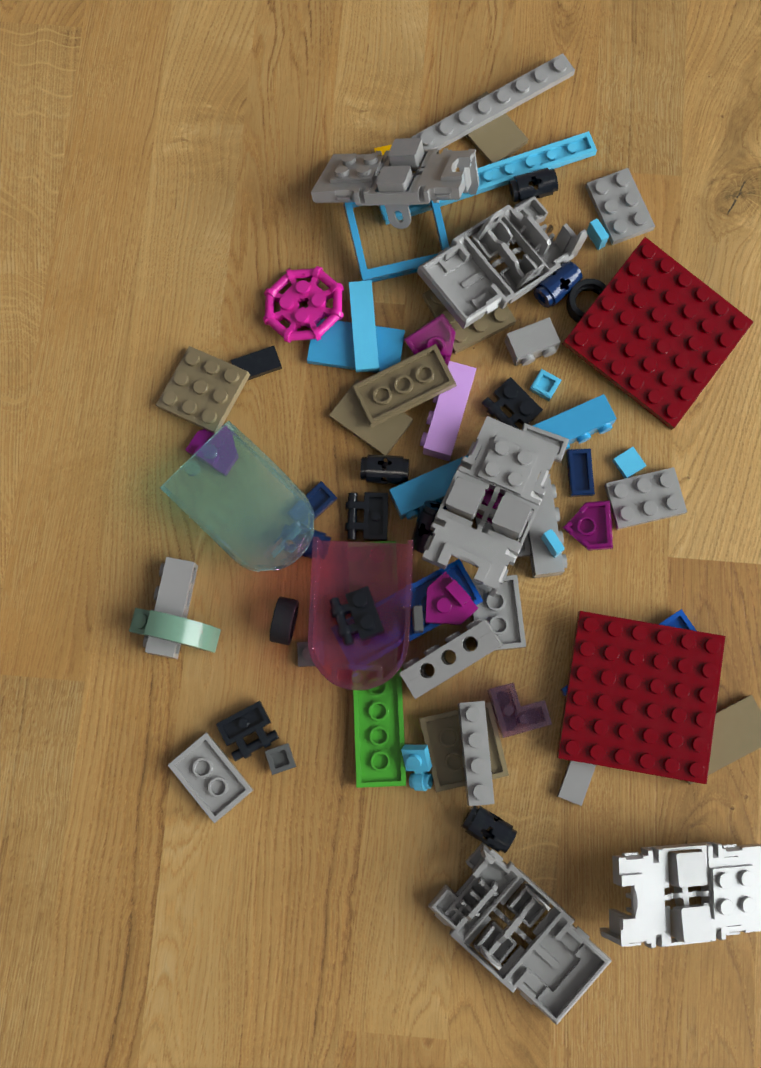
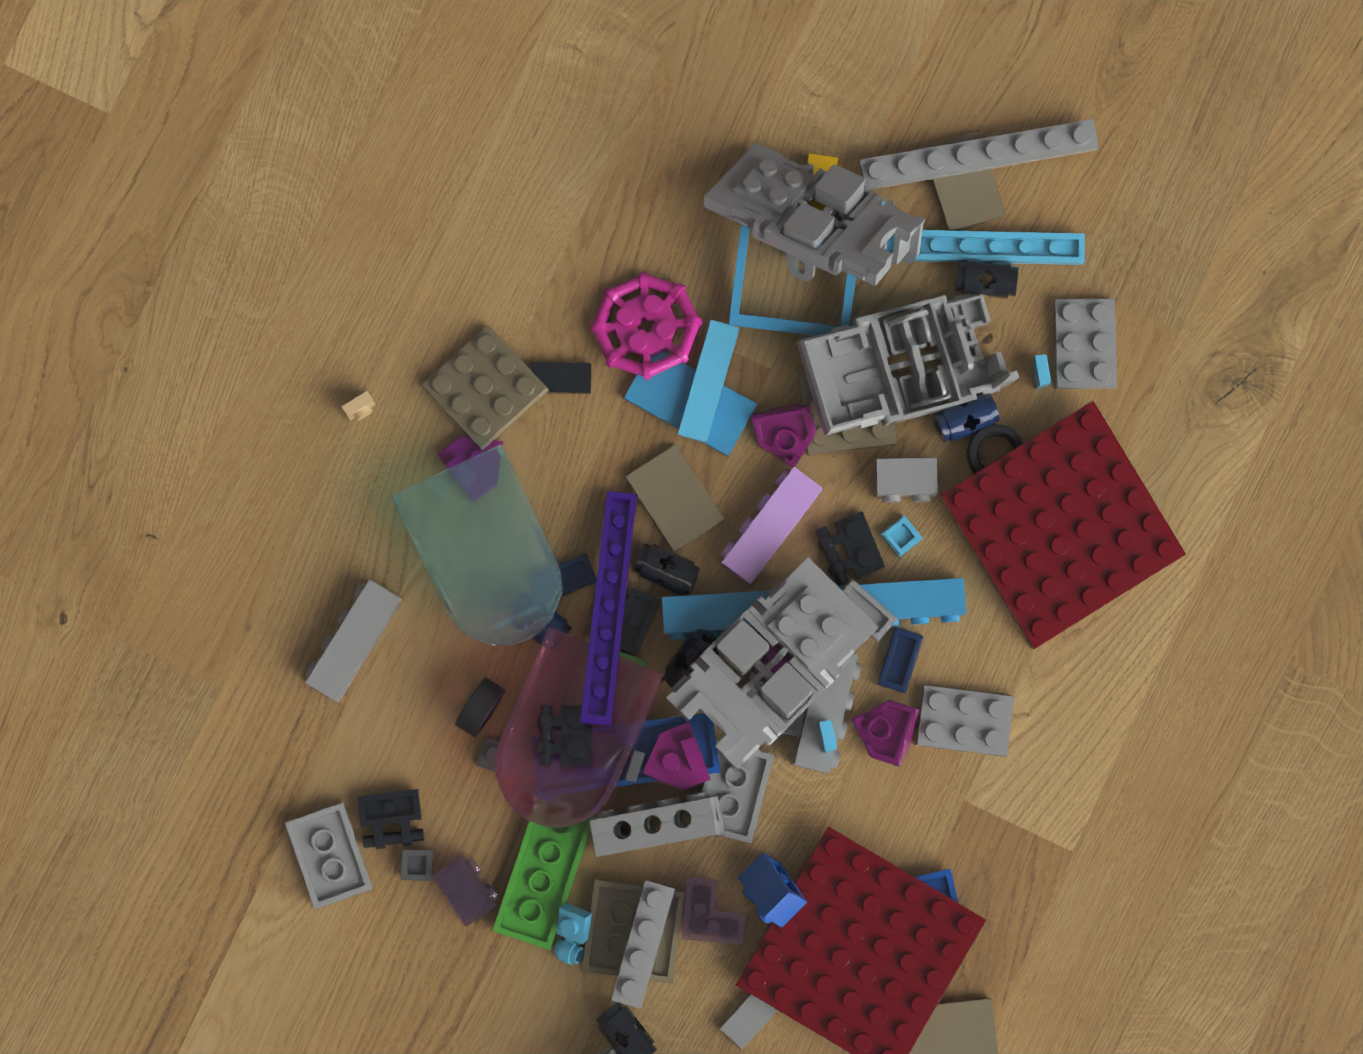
camera: 10 degrees right, 5 degrees up
(115, 436) = (359, 407): none -> tan plate
(175, 629) = (348, 669): sand green arch -> none
(324, 764) = (466, 890): none -> clear purple brick
(353, 513) = (608, 609): none -> dark purple plate
(404, 385) = (727, 476): dark tan tile -> none
(557, 675) = (771, 890): none -> blue brick
(629, 463) = (963, 670): medium azure tile -> none

